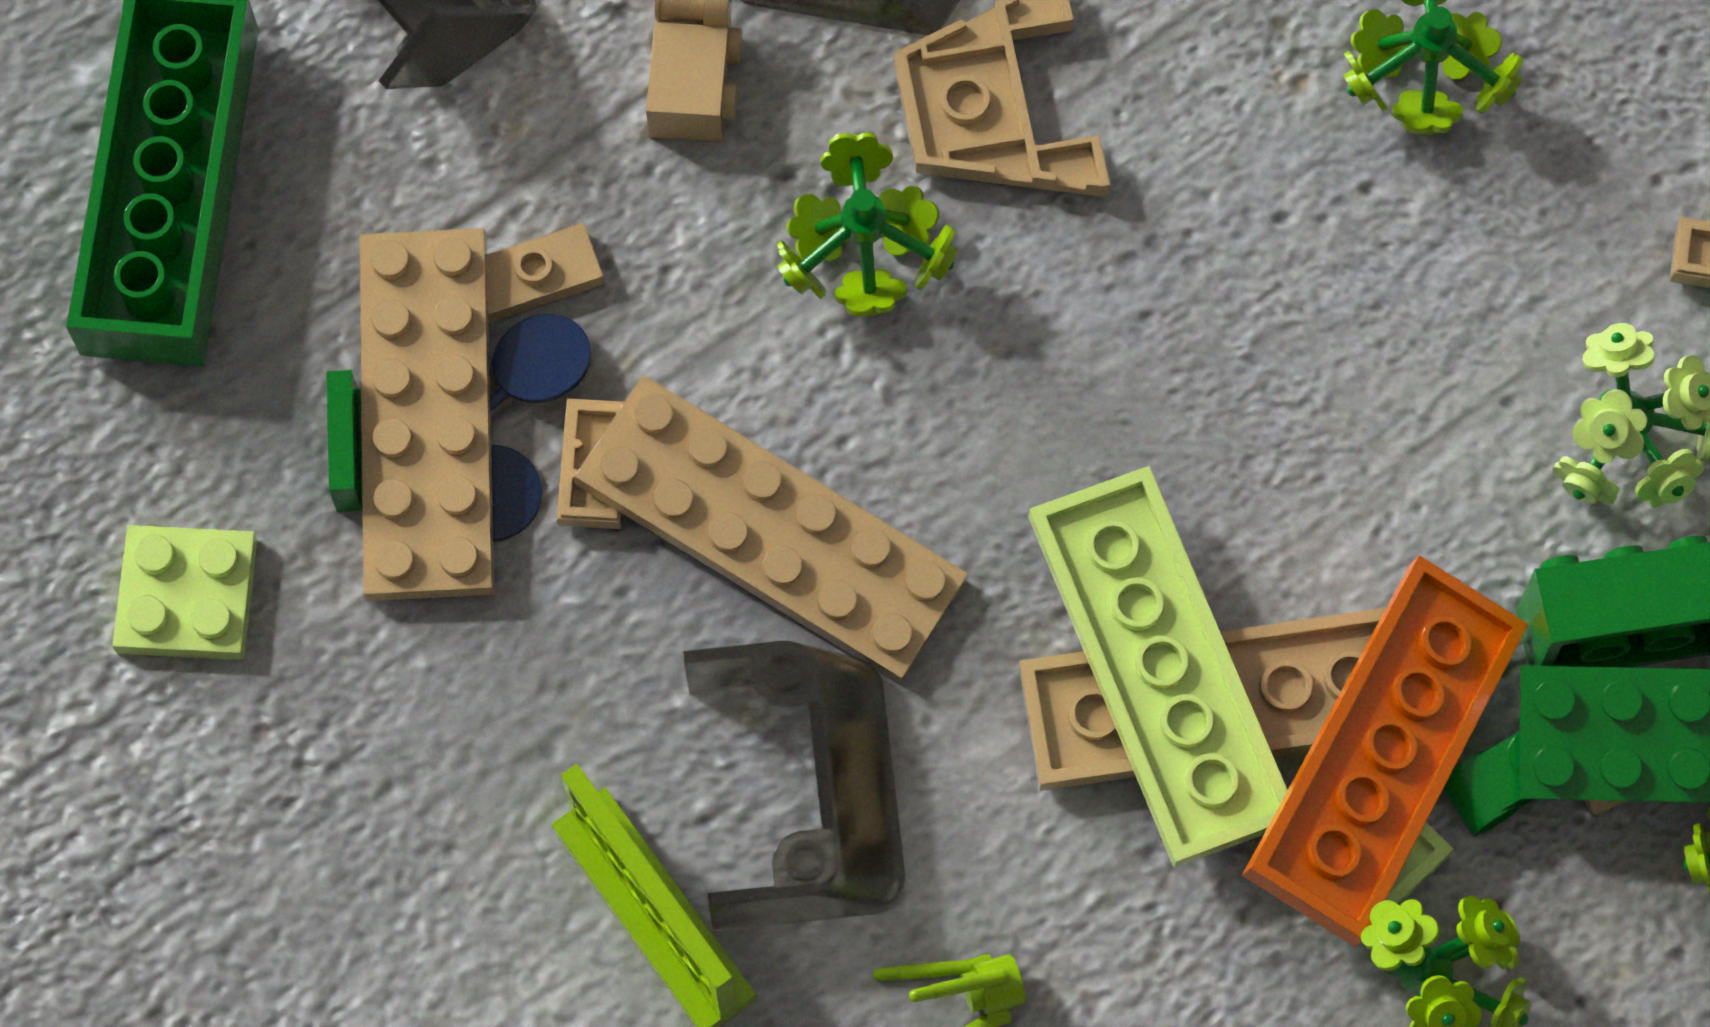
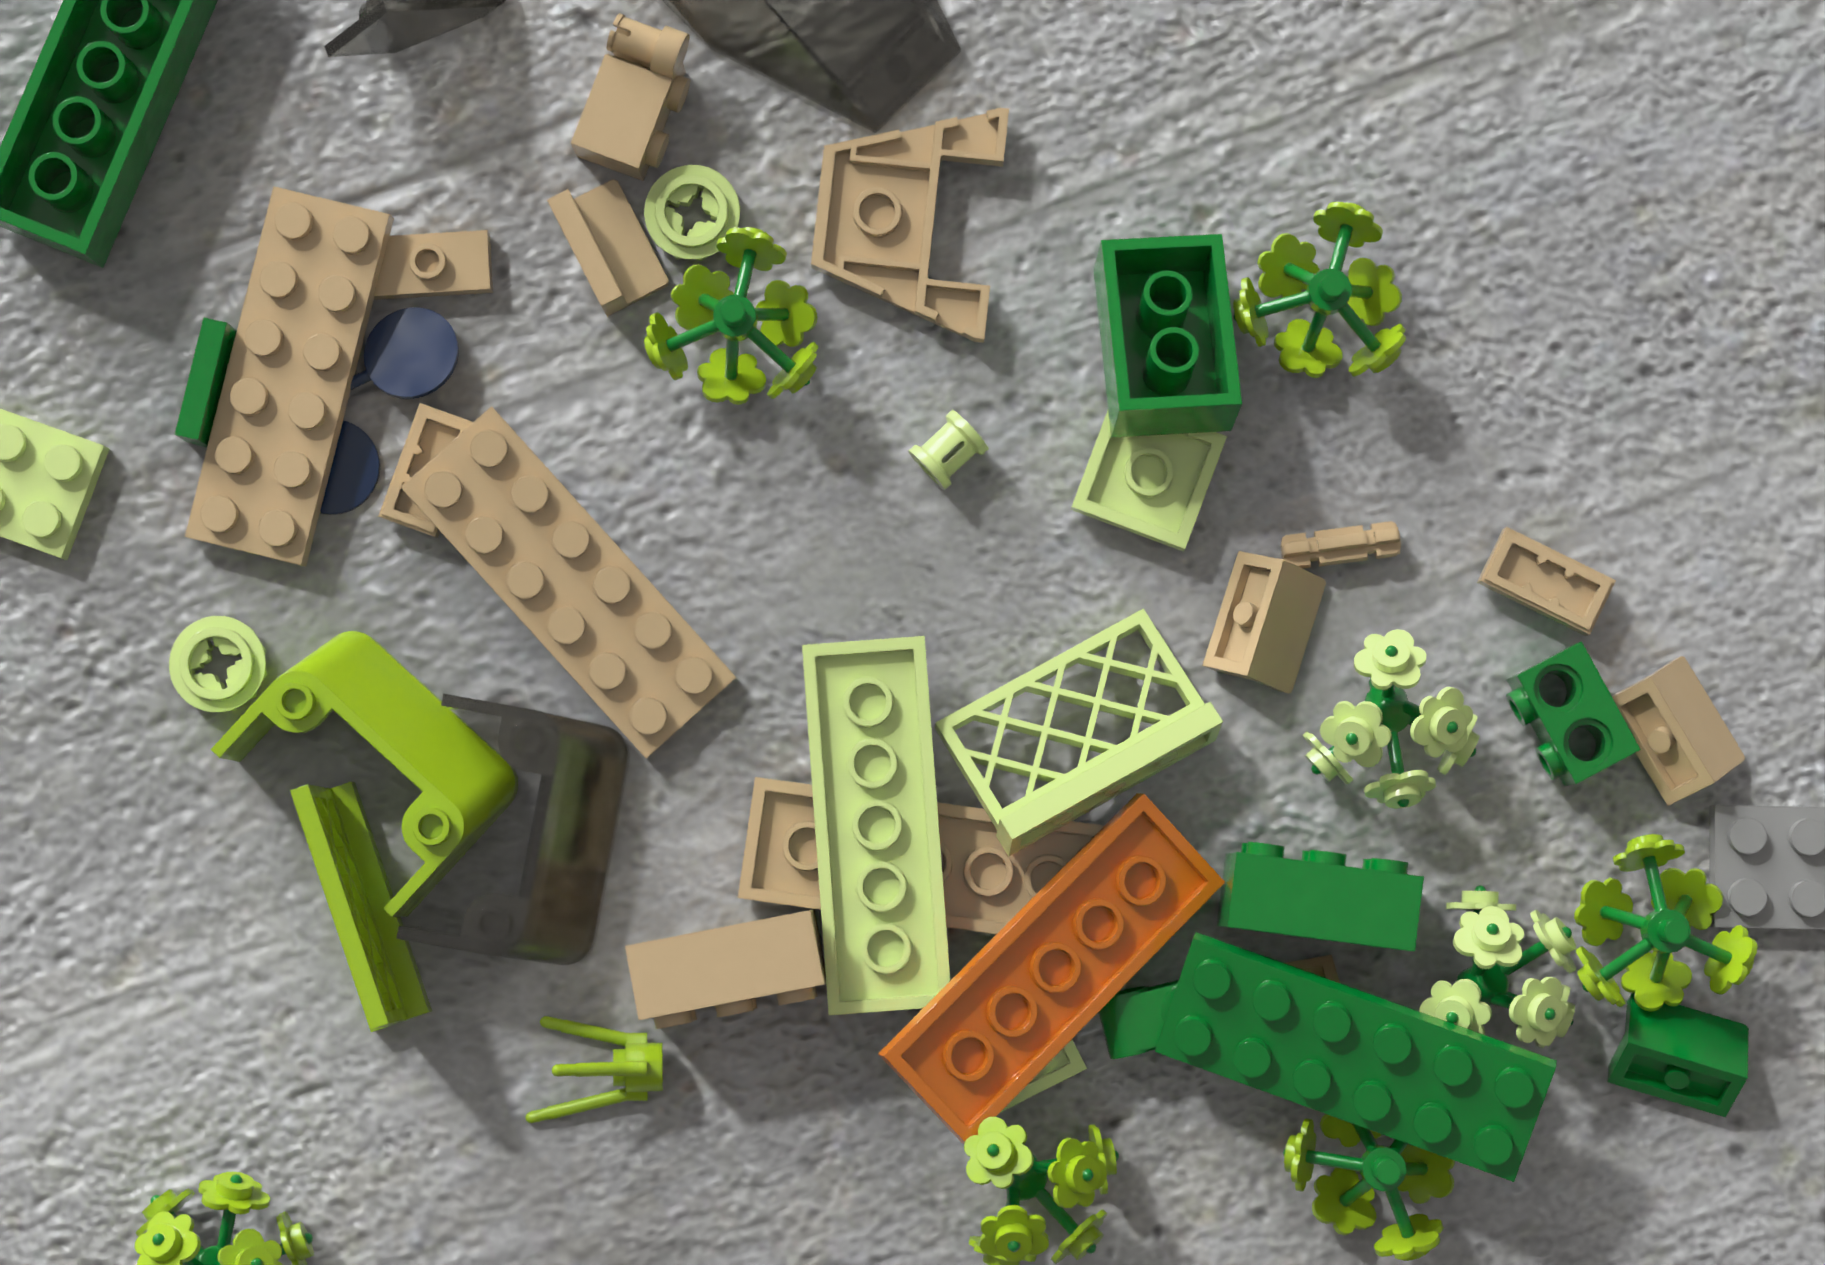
camera: 20 degrees right, 15 degrees up
(441, 685) = (193, 651): none -> yellowish green gear
(707, 207) = (609, 245): none -> tan panel
(723, 750) = (457, 770): none -> lime windscreen
(760, 137) = (680, 188): none -> yellowish green gear
(1056, 845) = (727, 968): none -> tan brick
(1108, 299) = (948, 449): none -> yellowish green bush
(1290, 126) = (1167, 335): none -> green brick
(1313, 267) = (1149, 482): none -> yellowish green plate
(1379, 544) = (1105, 775): none -> yellowish green fence
(1475, 372) = (1265, 621): none -> tan panel
(1524, 283) = (1342, 545): none -> tan axle

